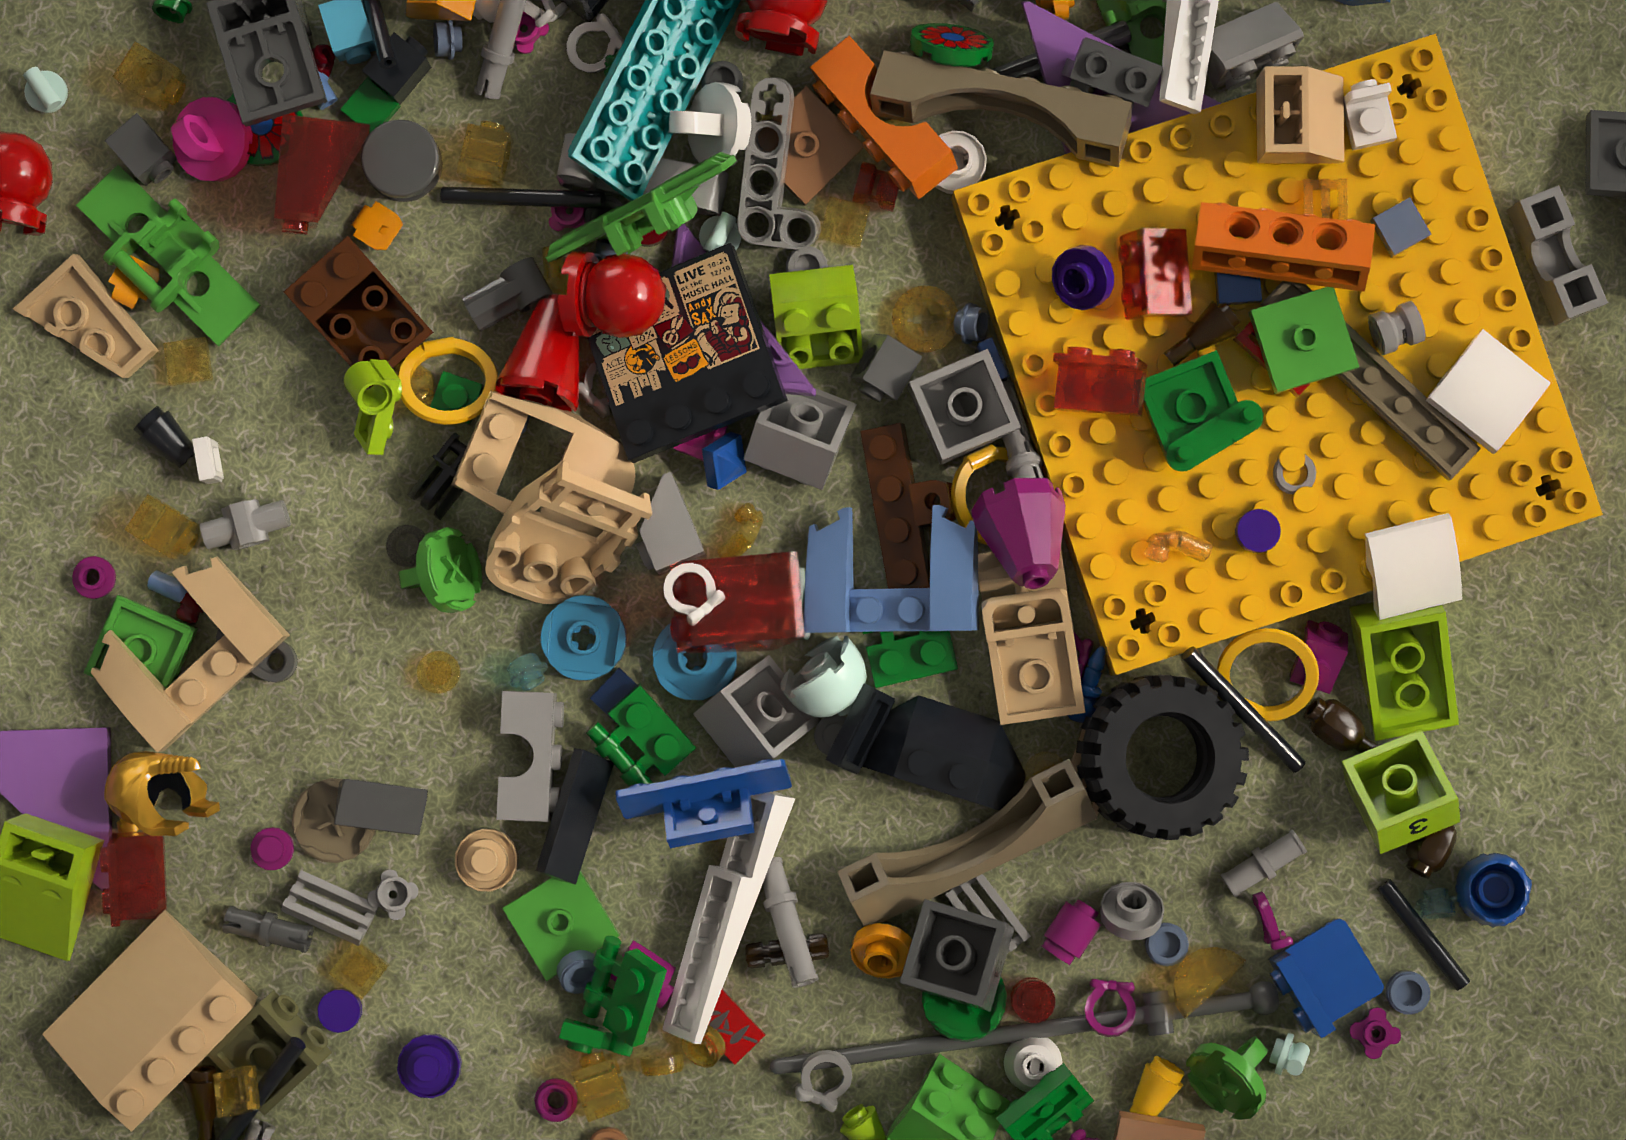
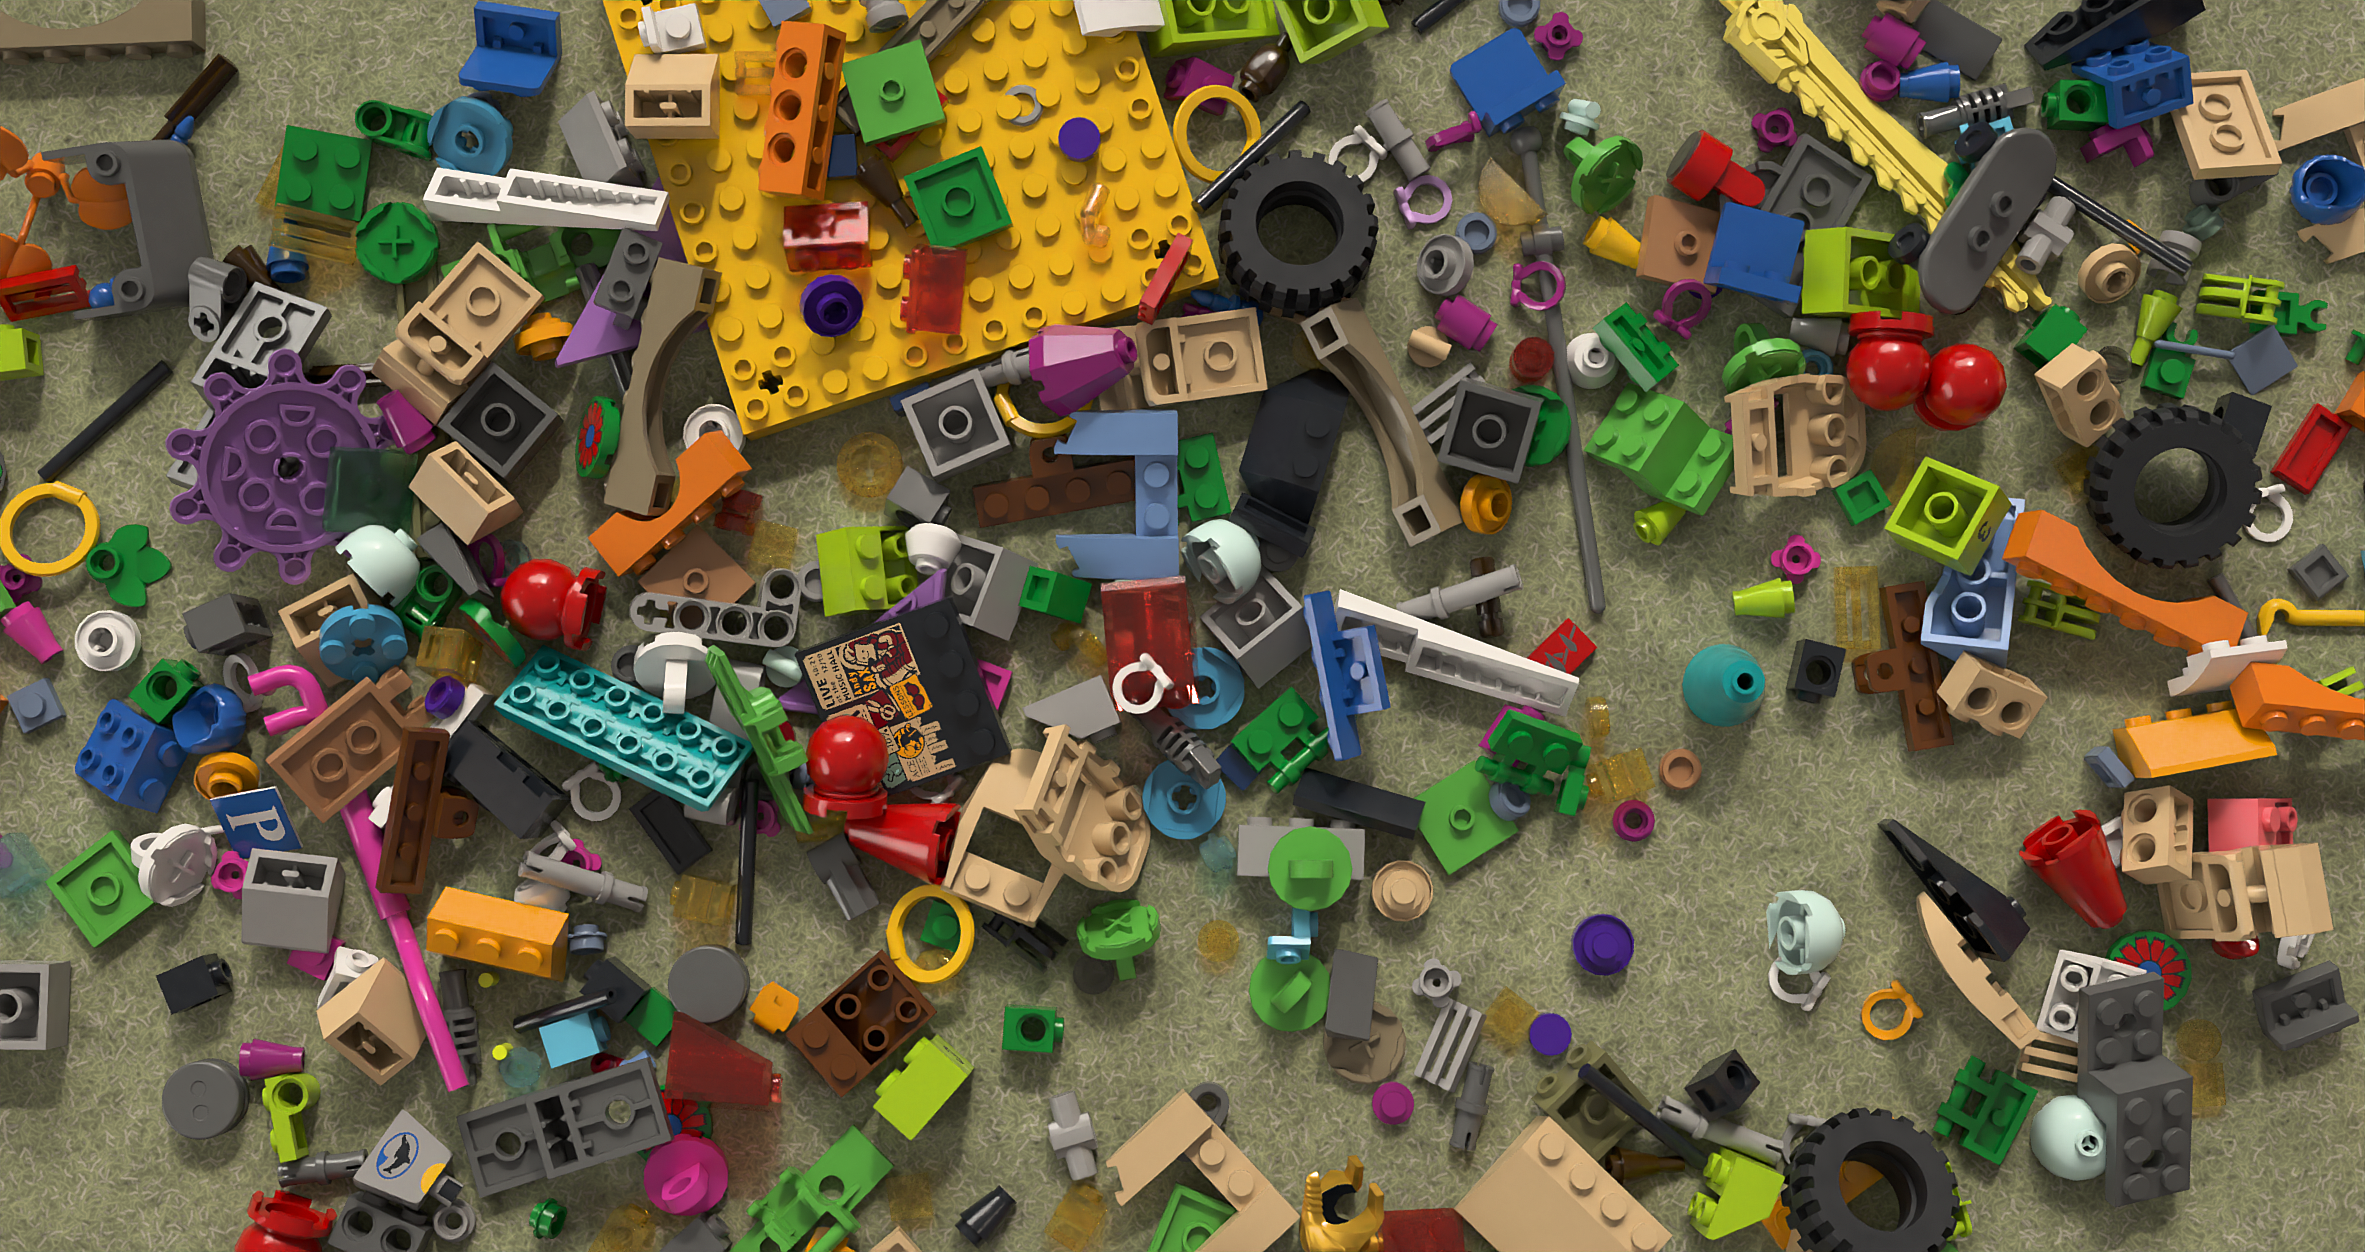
camera: 90 degrees left, 0 degrees up
(173, 589) = (1138, 1204): arm -> none
(208, 460) = (1009, 1173): white tile -> none
(236, 1091) = (1631, 1132): clear yellow tile -> none
(288, 369) = (923, 1087): none -> lime brick
(343, 466) = (1013, 1033): none -> green brick
(376, 404) = (940, 1004): lime plate -> none
(388, 744) = (1290, 994): none -> bright green tile
(451, 759) = (1297, 946): none -> medium azure bracket
(507, 764) = (1310, 868): none -> bright green tile
(546, 127) = (670, 830): none -> black tile
(632, 635) = (1181, 746): none -> dark grey hinge
(708, 1052) = (1586, 671): clear yellow tile -> none
(724, 460) = (1009, 660): blue tile -> none
(790, 506) = (1055, 594): none -> green brick
(828, 1100) = (1628, 556): light grey piece -> none
(838, 381) = (931, 547): none -> white cone
(972, 323) = (874, 418): sand blue plate -> none
(1047, 892) = (1428, 347): none -> tan plate
(1110, 617) = (1165, 279): none -> tile
(1205, 868) = (1412, 218): none -> lavender piece
(1214, 435) = (987, 179): green piece -> none
(1268, 824) = (1360, 136): none -> white piece

